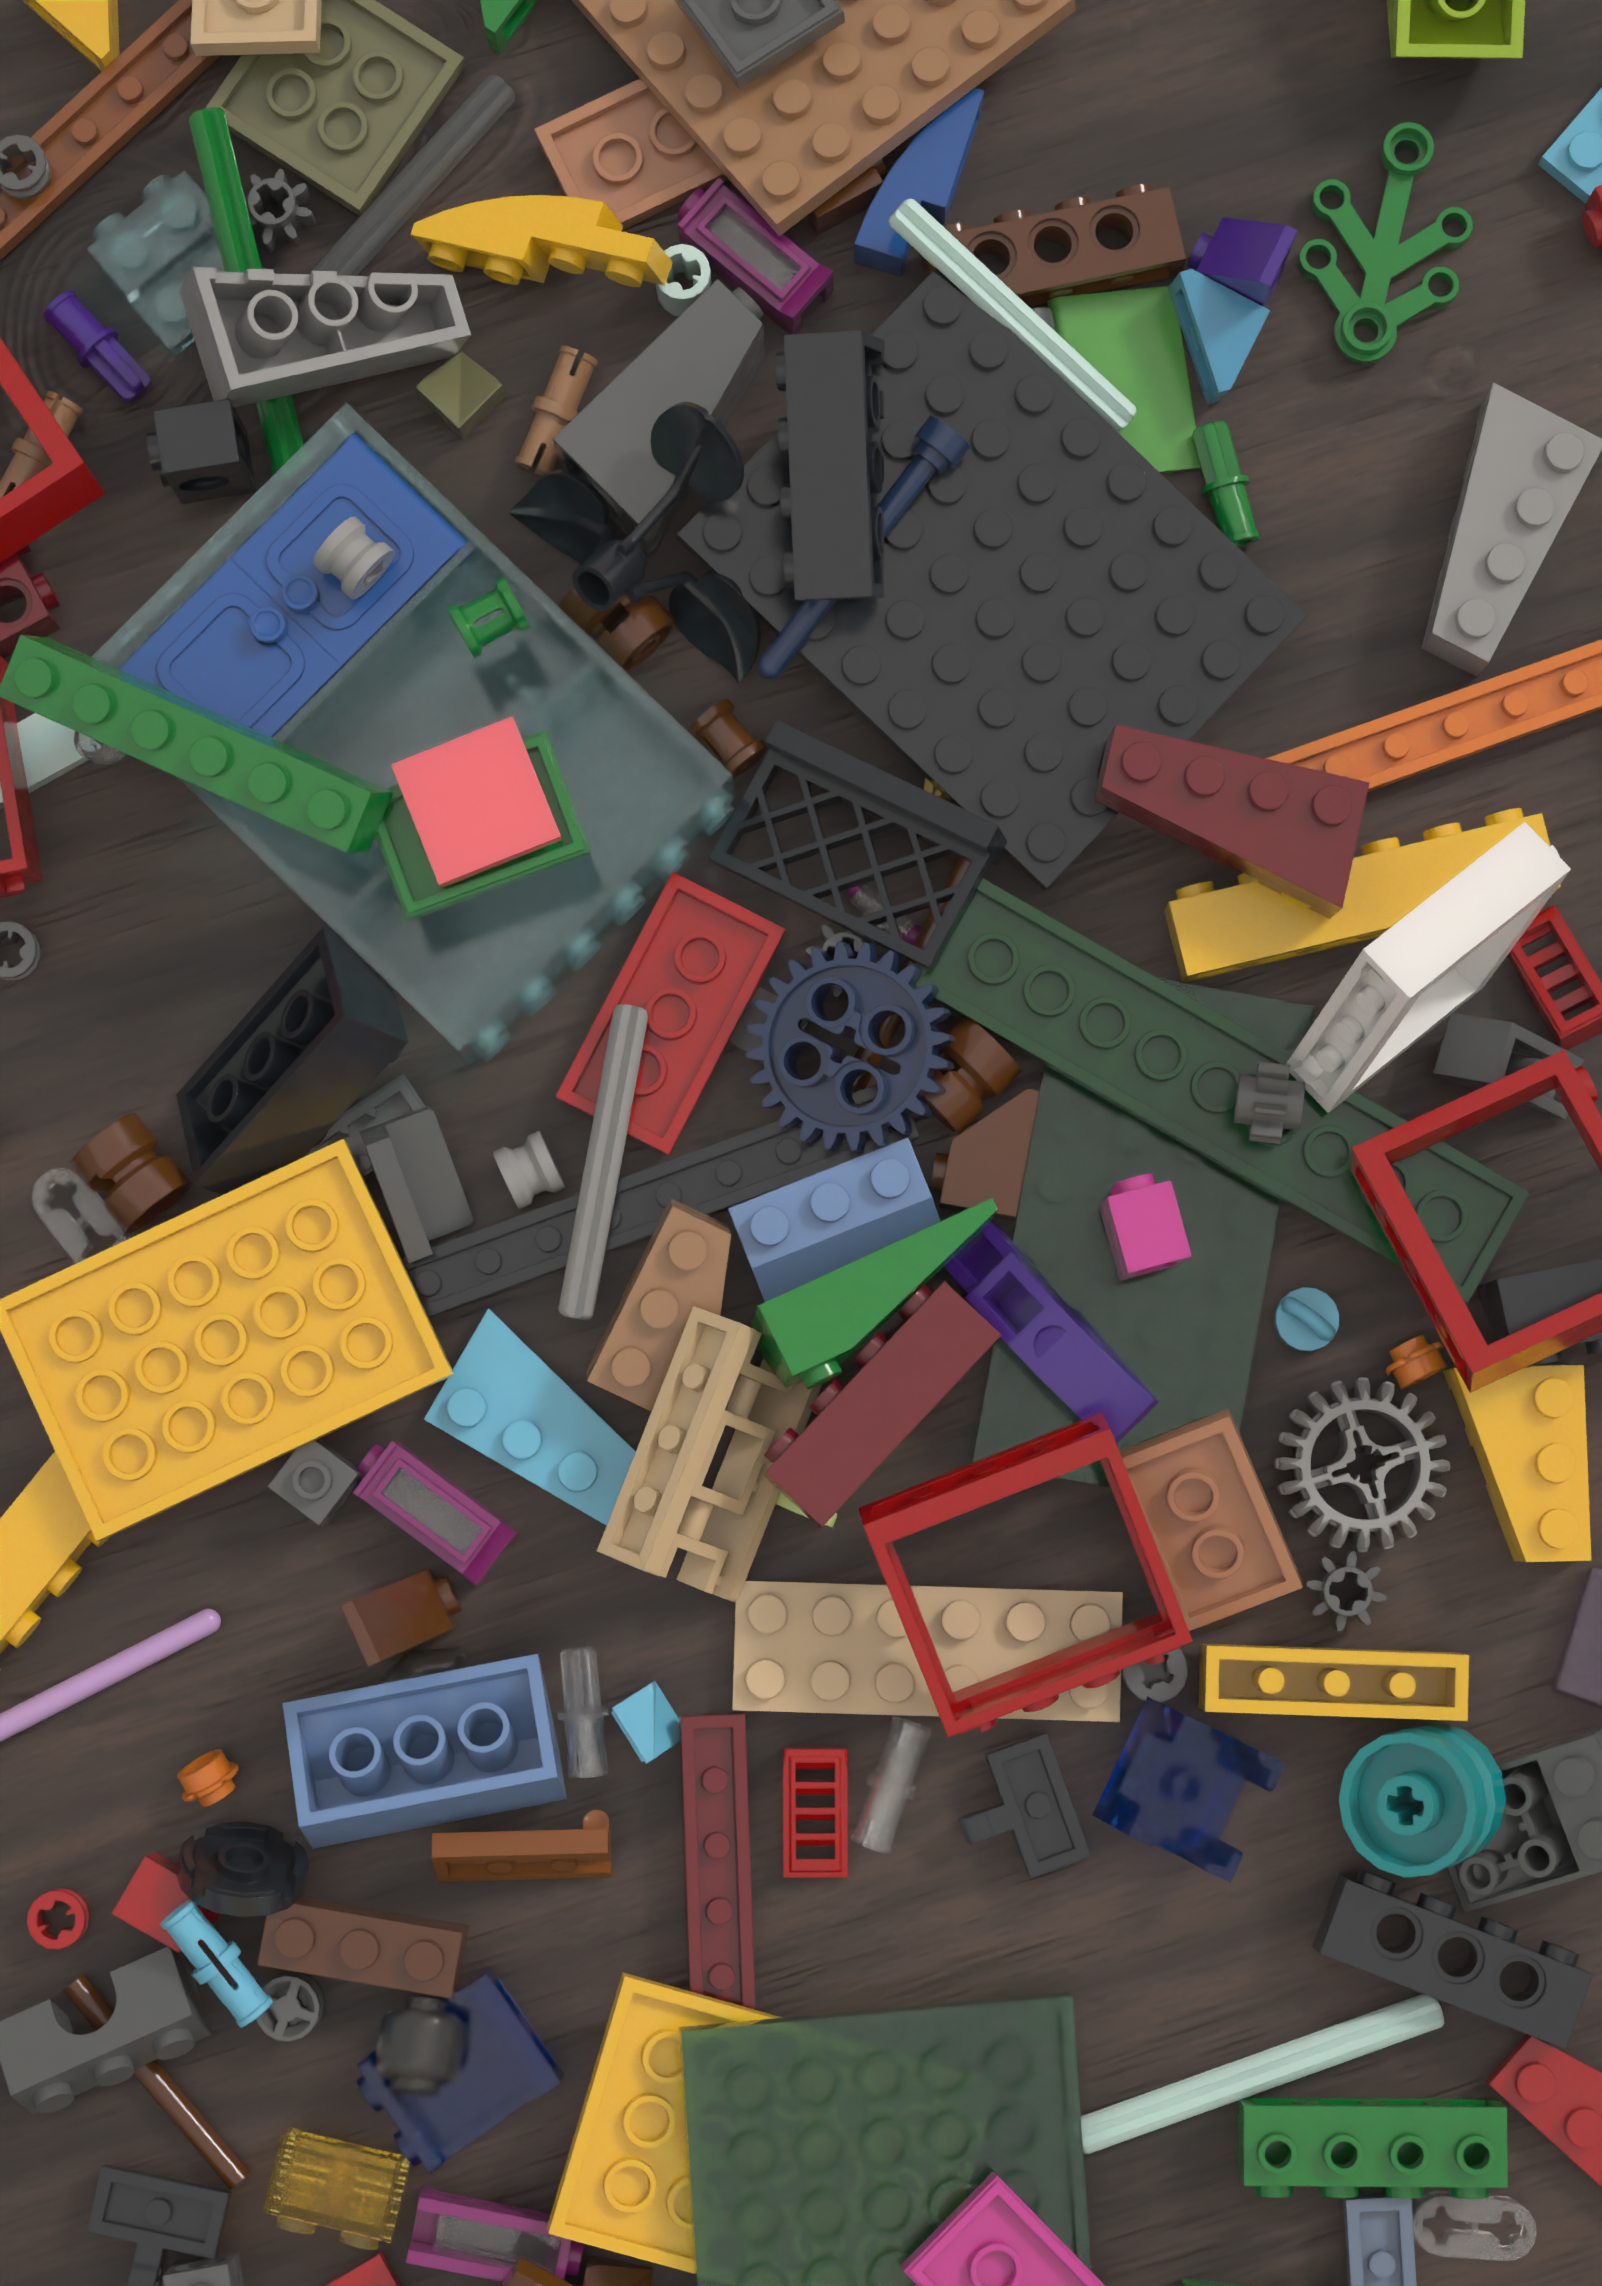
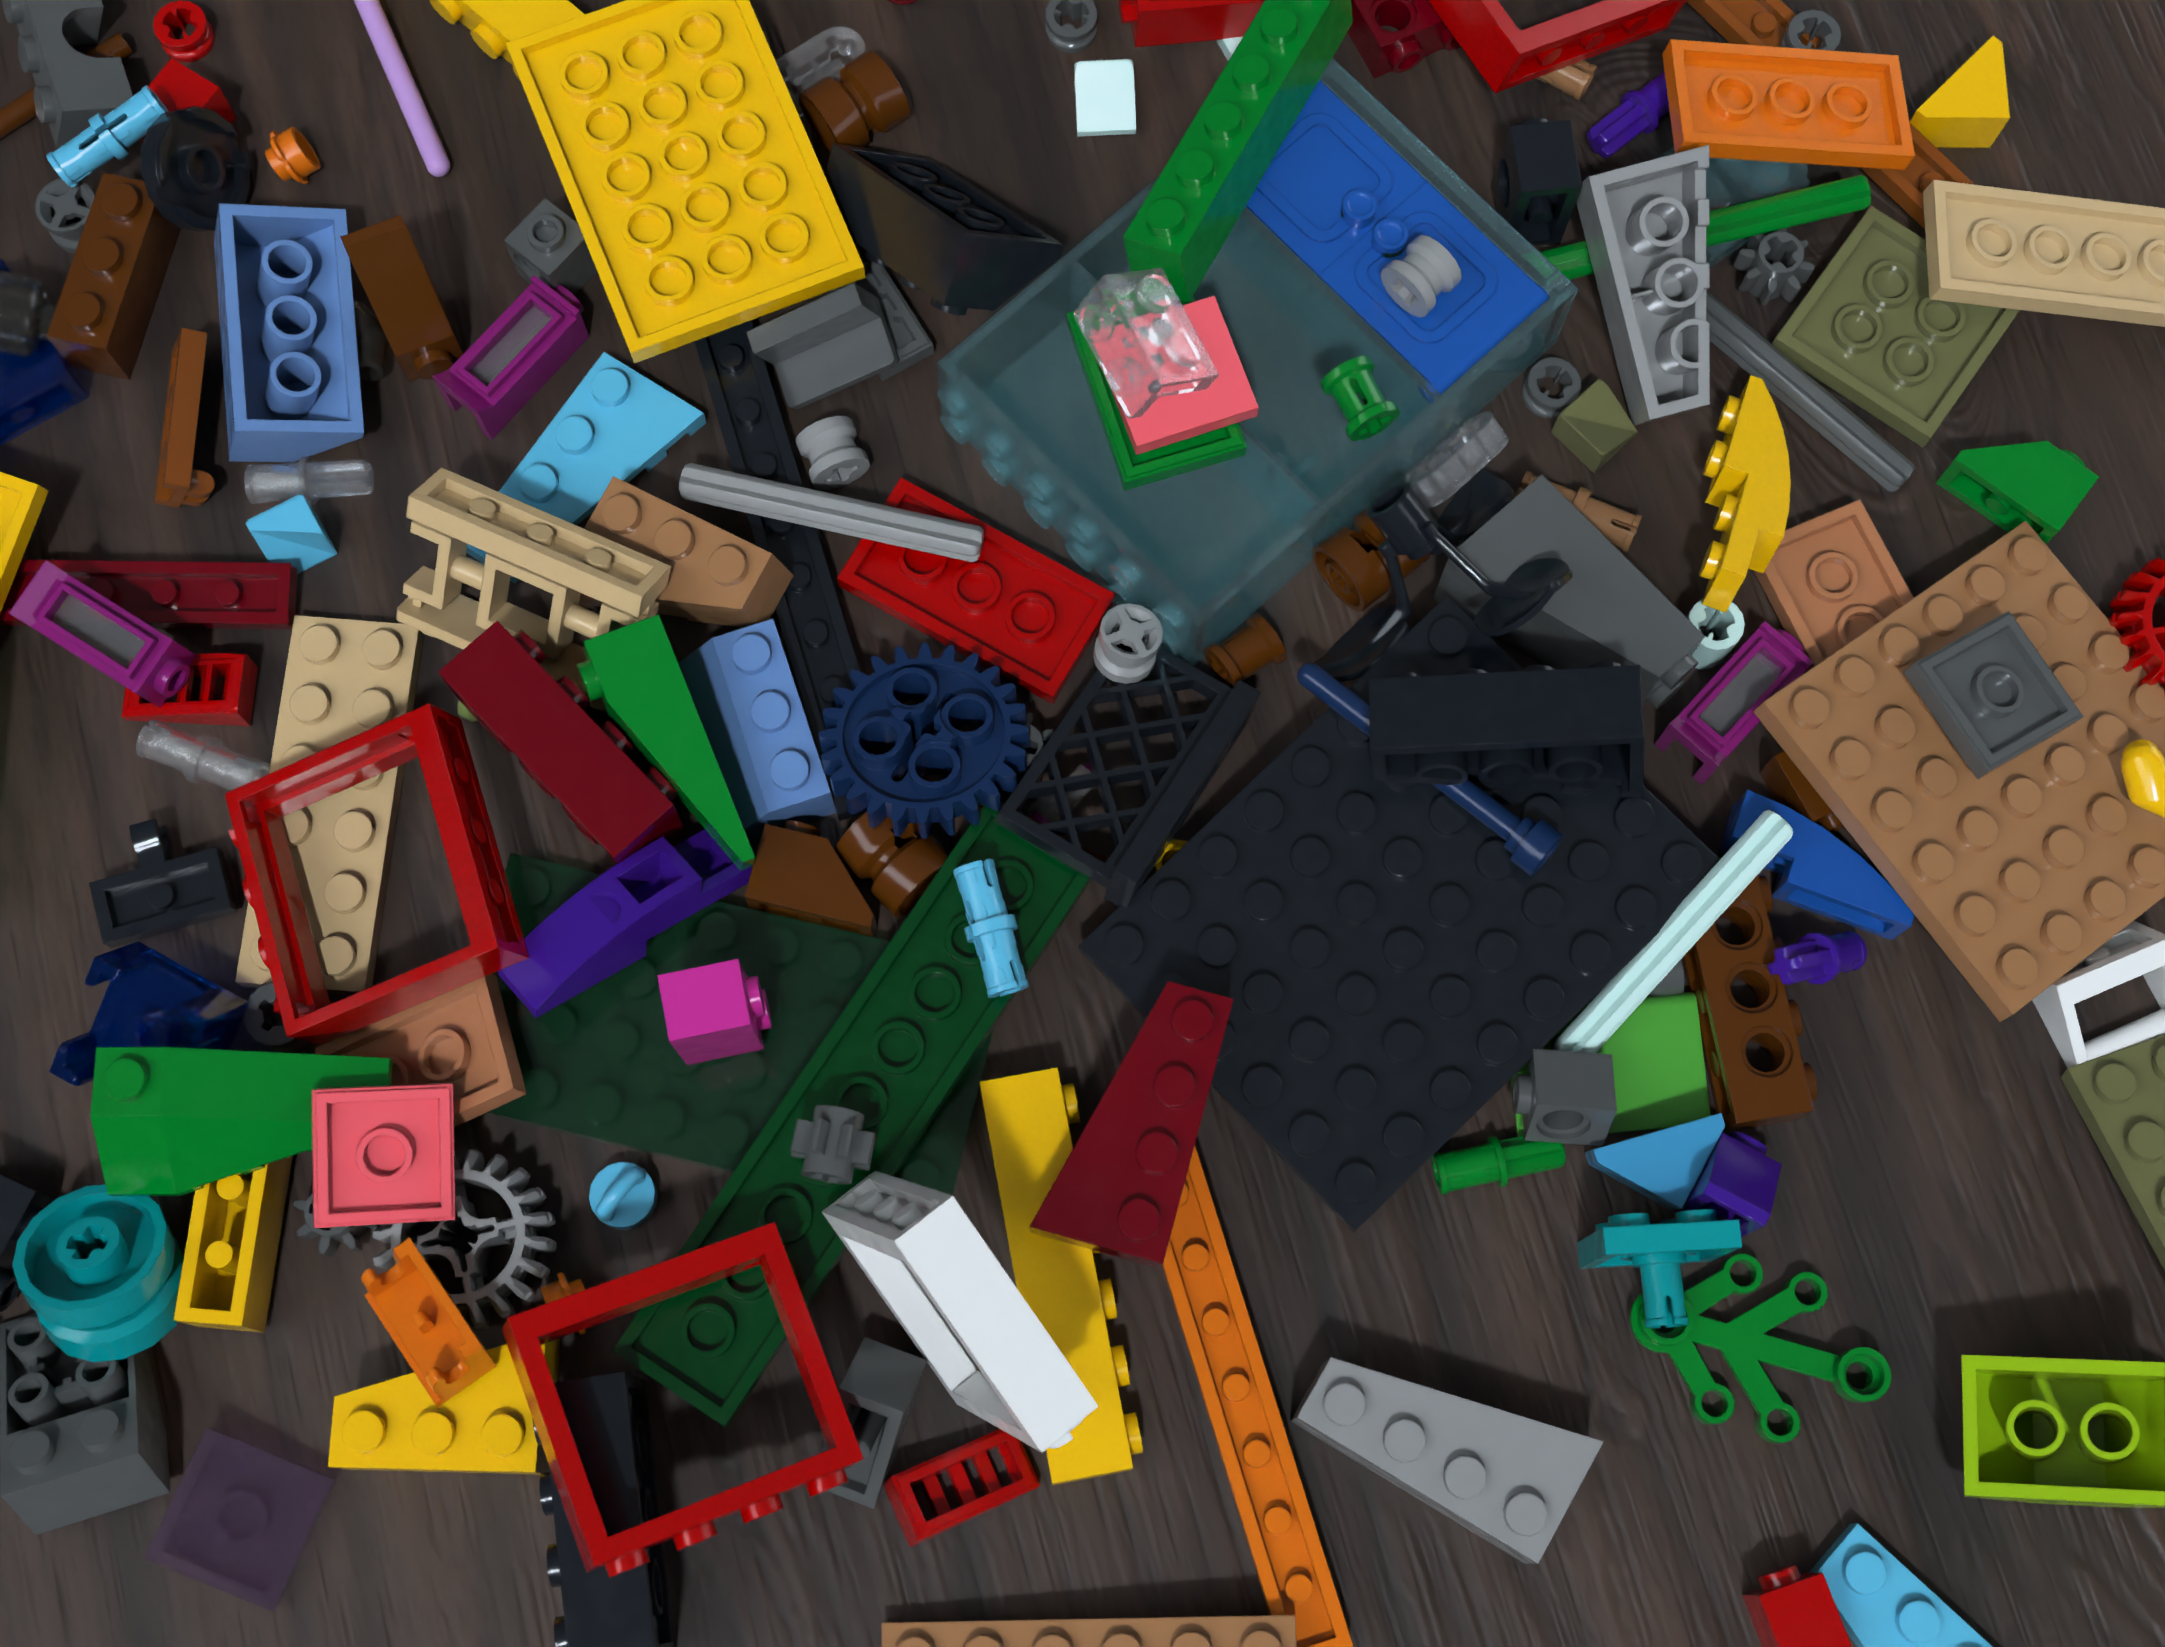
camera: 85 degrees right, 10 degrees down
(104, 910) = (1105, 97): none -> light aqua slope
(108, 191) = (1788, 104): none -> orange plate
(429, 425) = (1562, 372): none -> dark grey bush
(453, 829) = (1143, 339): none -> clear bracket
(511, 529) = (1457, 459): none -> clear beam
(727, 840) = (1134, 628): none -> light grey wheel
(778, 1889) = (103, 634): none -> magenta window
(1017, 179) = (1818, 958): none -> dark purple axle
(1045, 966) = (991, 928): none -> medium azure pin
(1169, 417) = (1566, 1097): none -> dark grey brick
(1274, 1701) = (200, 1115): none -> green wedge
(1302, 1534) = (382, 1154): none -> coral tile
(1313, 332) = (1659, 1253): none -> teal plate
(1459, 1476) = (426, 1324): none -> orange hinge

